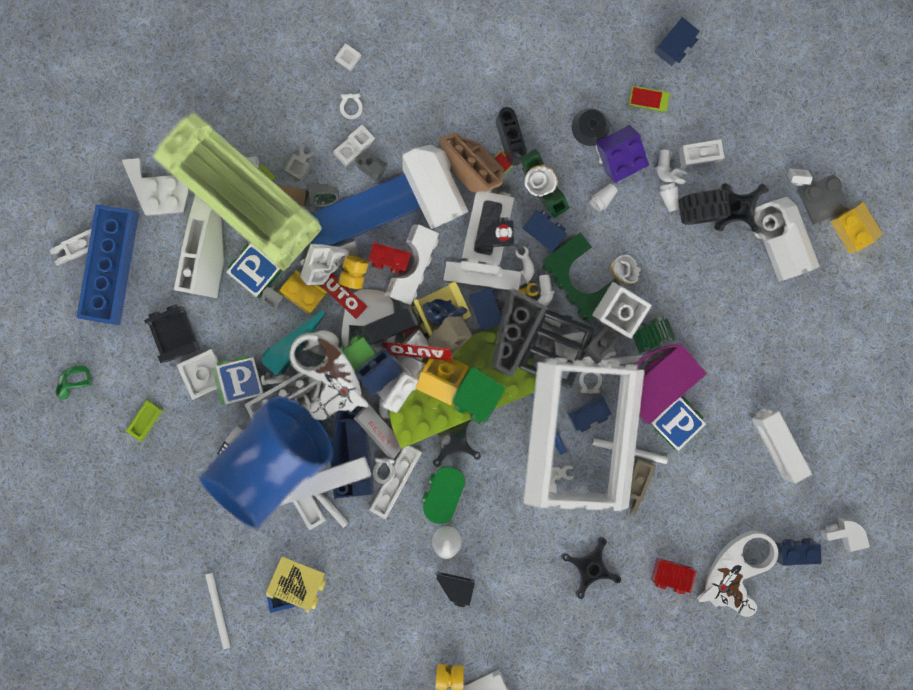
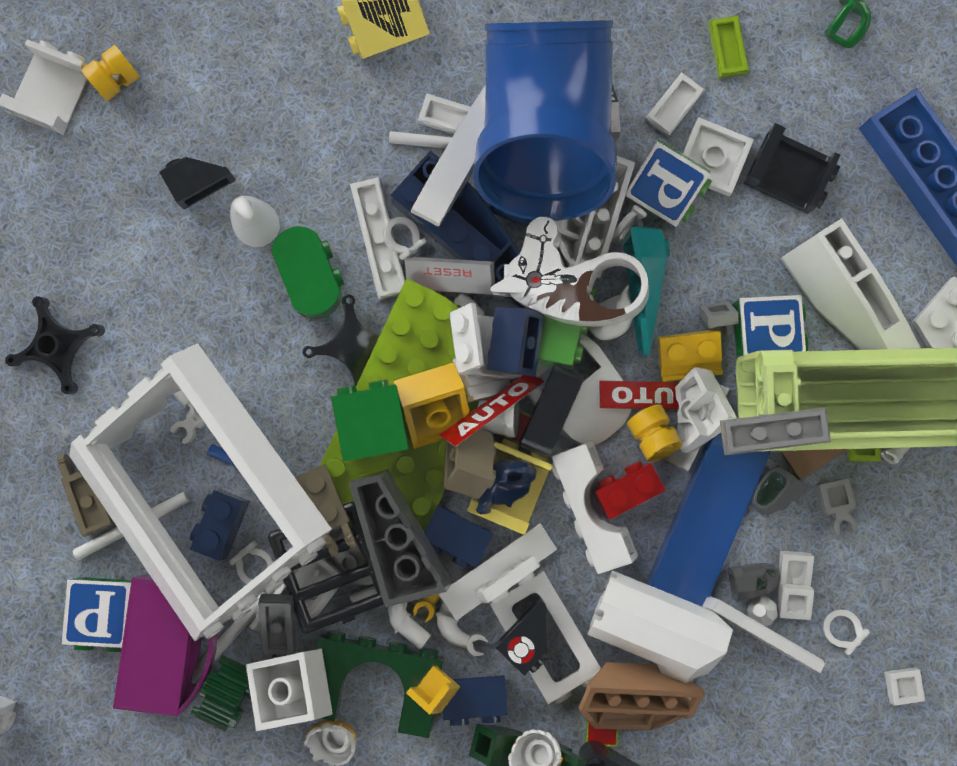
camera: 135 degrees right, 5 degrees down
(196, 416) = (674, 104): none -> white tile
(304, 224) = (775, 431): none -> light grey tile
(379, 148) = (762, 610): none -> white rock
(389, 138) = (764, 634): none -> white tile
(528, 382) = (324, 495): none -> dark tan hinge
(558, 250) = (434, 691): none -> yellow panel

